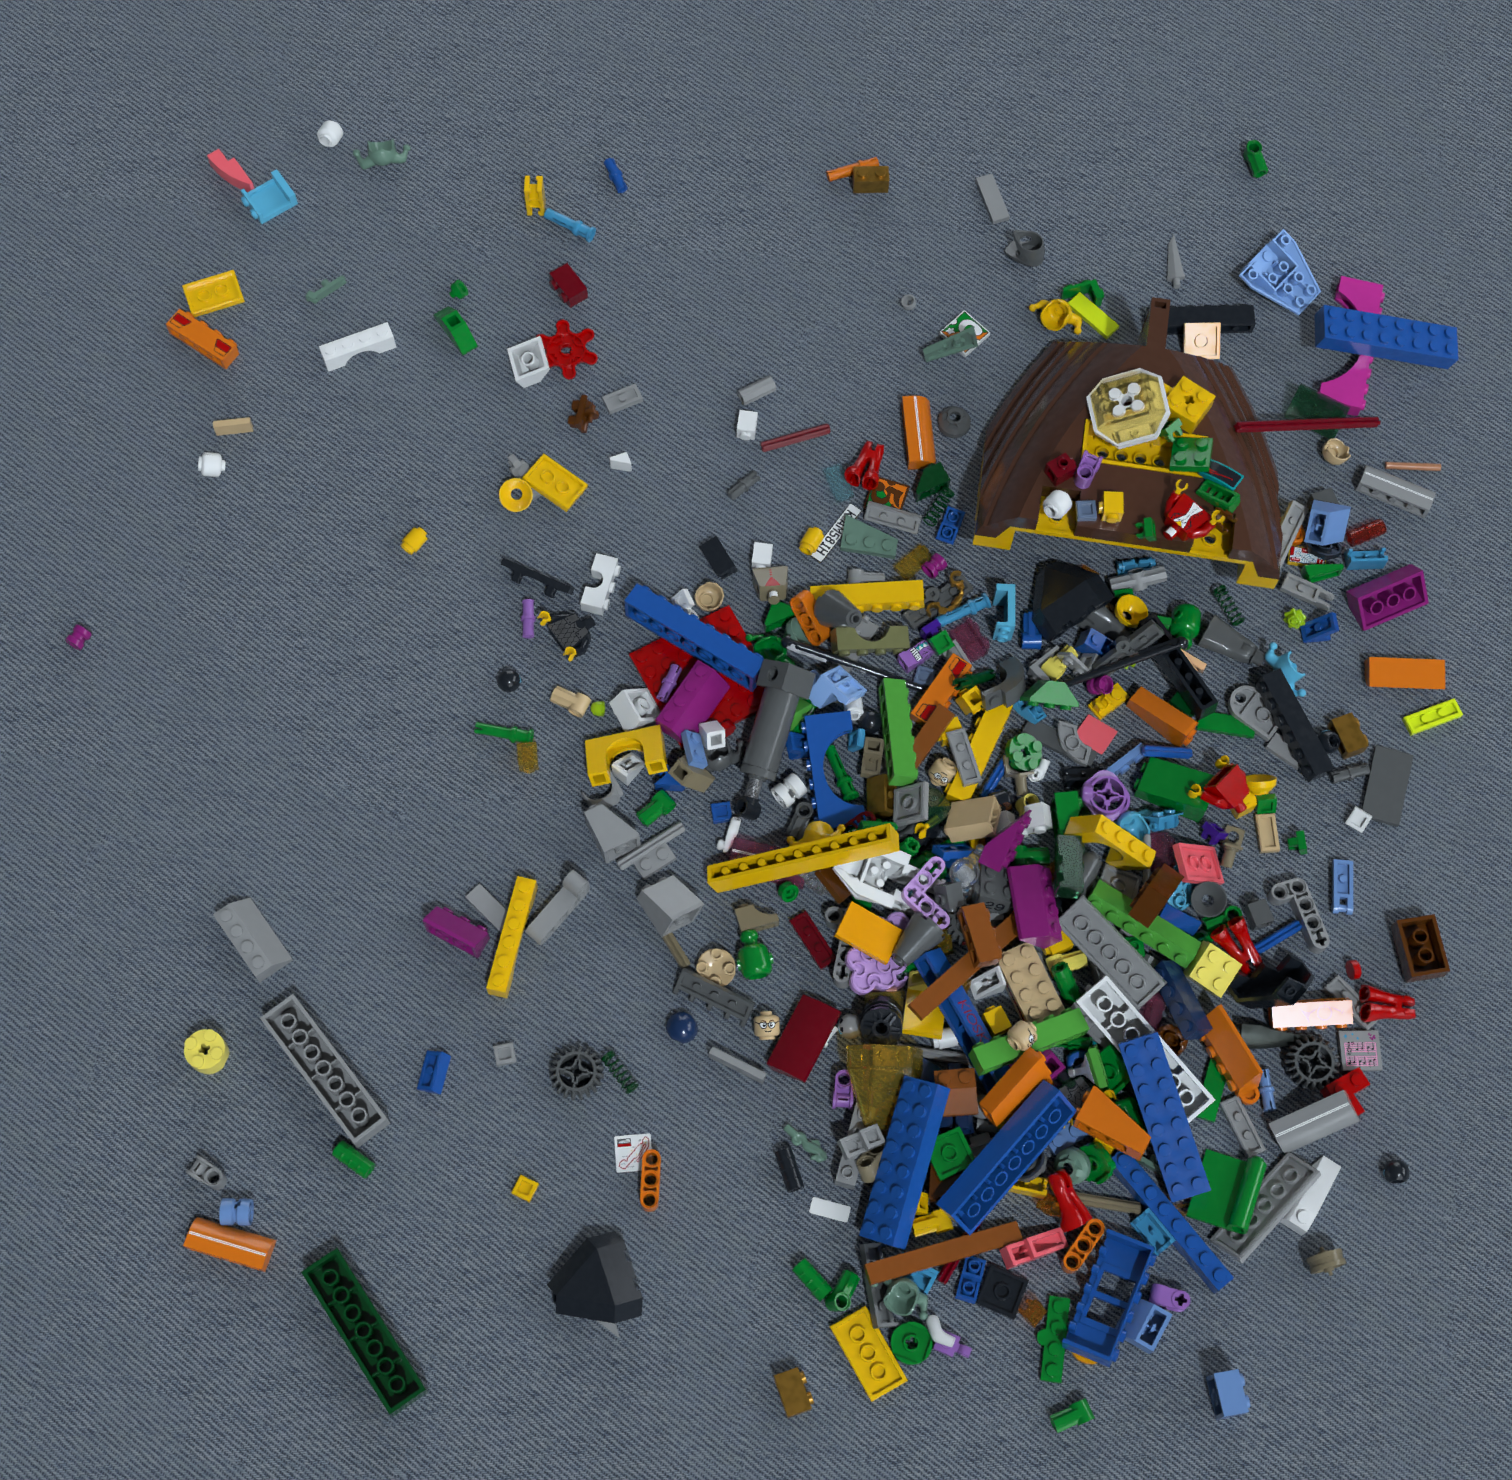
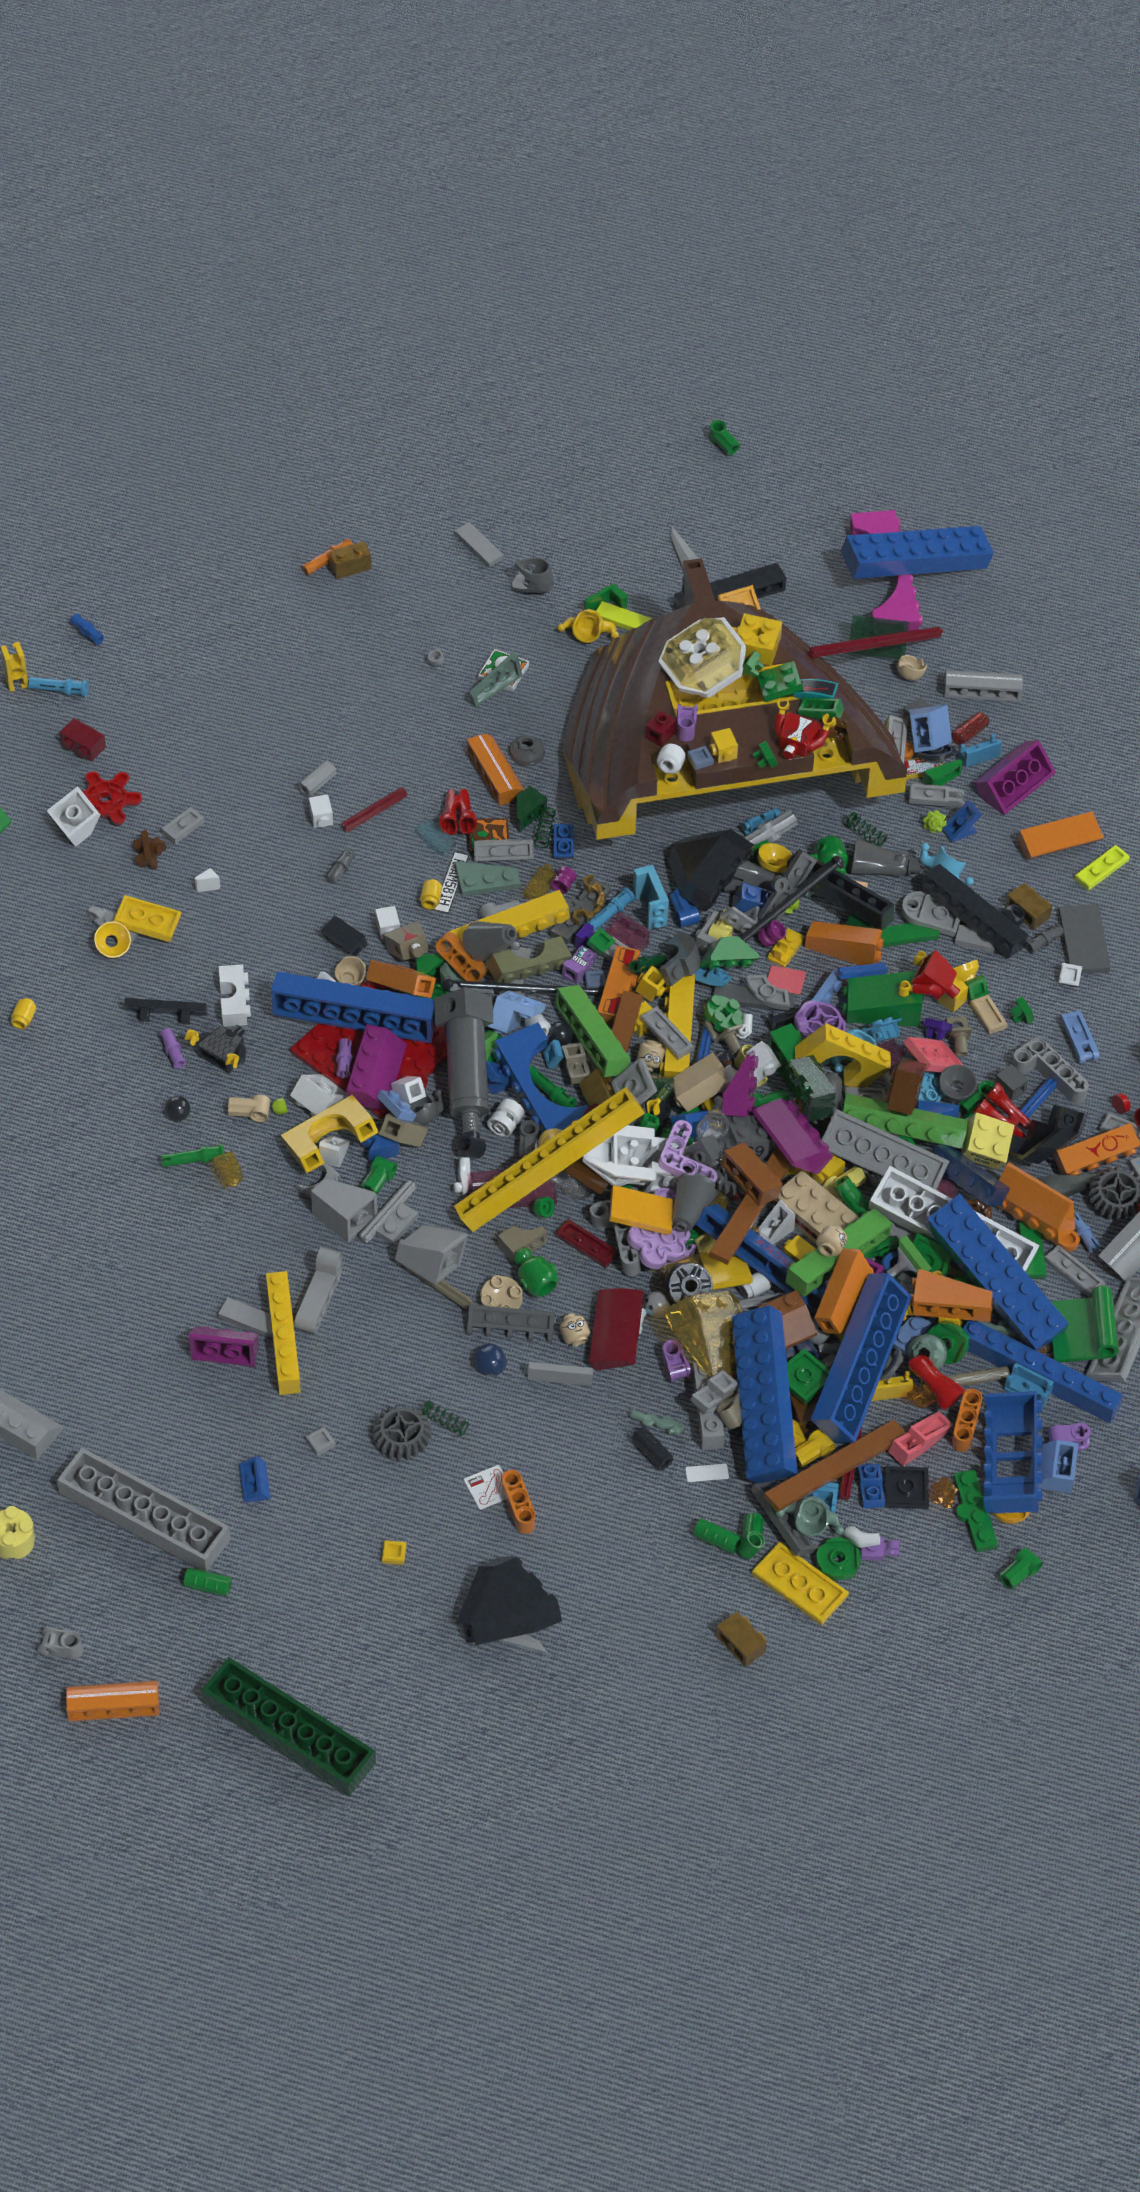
camera: 20 degrees left, 15 degrees down
(236, 1211) = (107, 1665): medium blue wheel -> none
(721, 812) = (445, 1160): blue tile -> none
(747, 622) = (401, 978): none -> orange slope
(1282, 274) = (793, 529): light blue wedge -> none
(1413, 466) = (989, 660): nougat bar -> none

